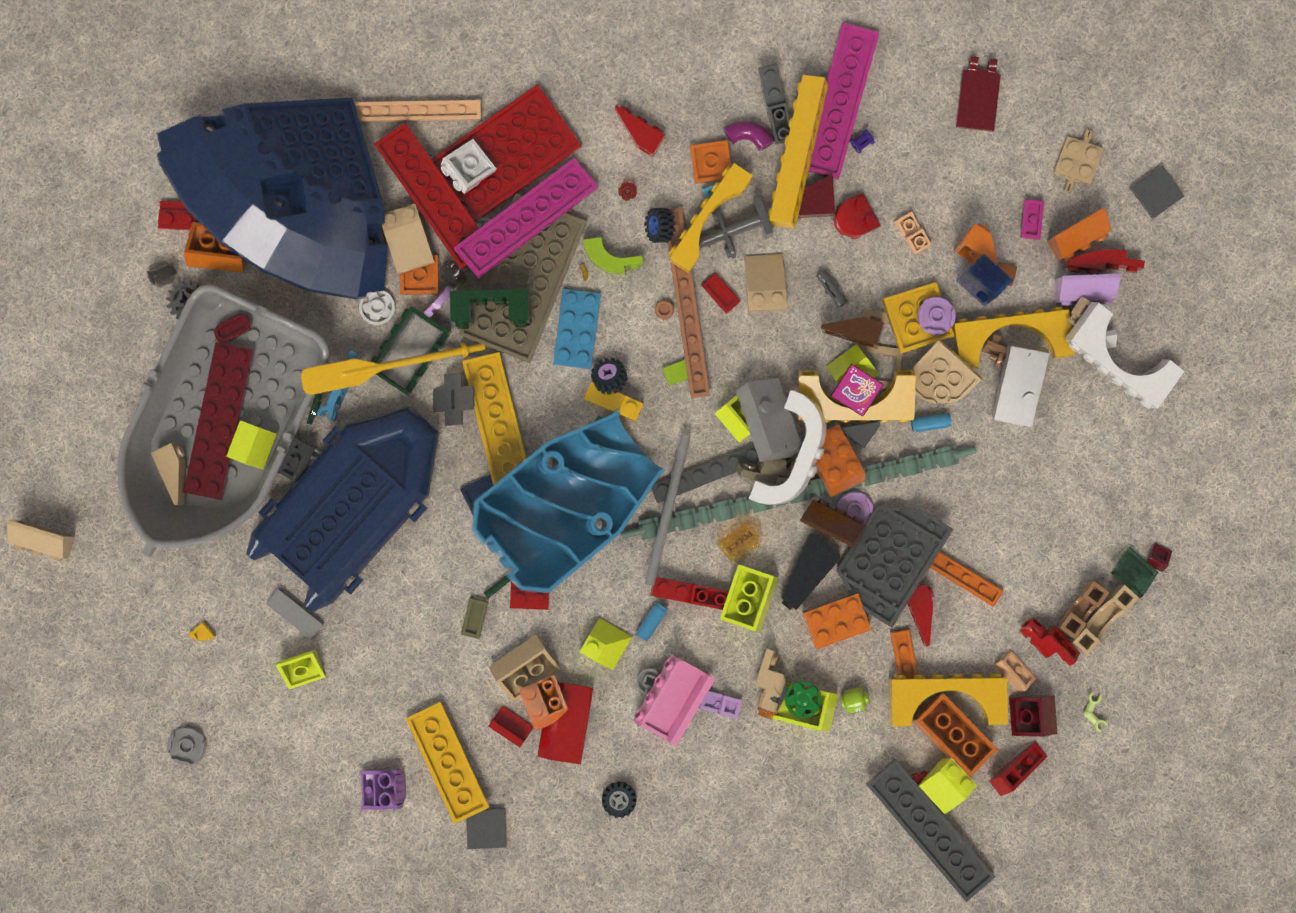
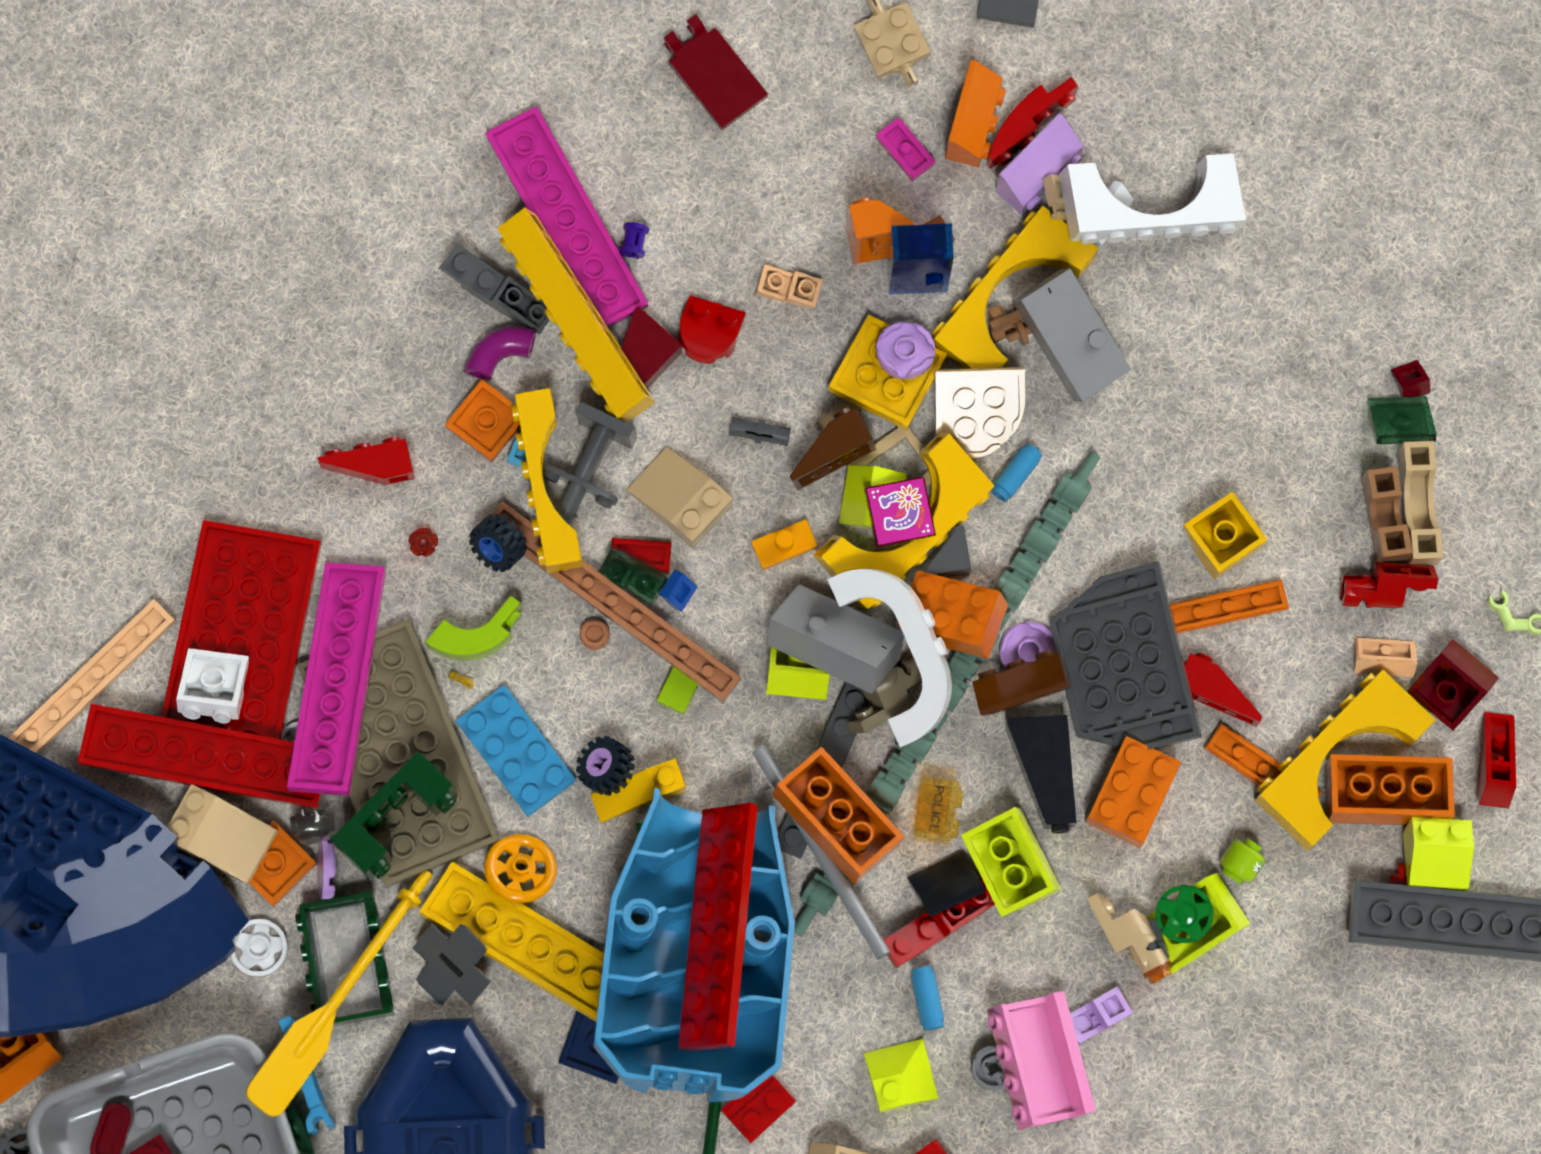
camera: 50 degrees left, 10 degrees down
(530, 400) = (513, 890): none -> light orange plate
(584, 501) = (718, 928): none -> red plate
(690, 501) = (837, 815): none -> orange brick
(708, 298) = (633, 574): none -> clear green slope
(709, 579) = (946, 884): none -> black tile
(721, 326) = (678, 590): none -> blue plate
(791, 352) = (784, 544): none -> light orange tile
(997, 545) = (1224, 535): none -> yellow slope

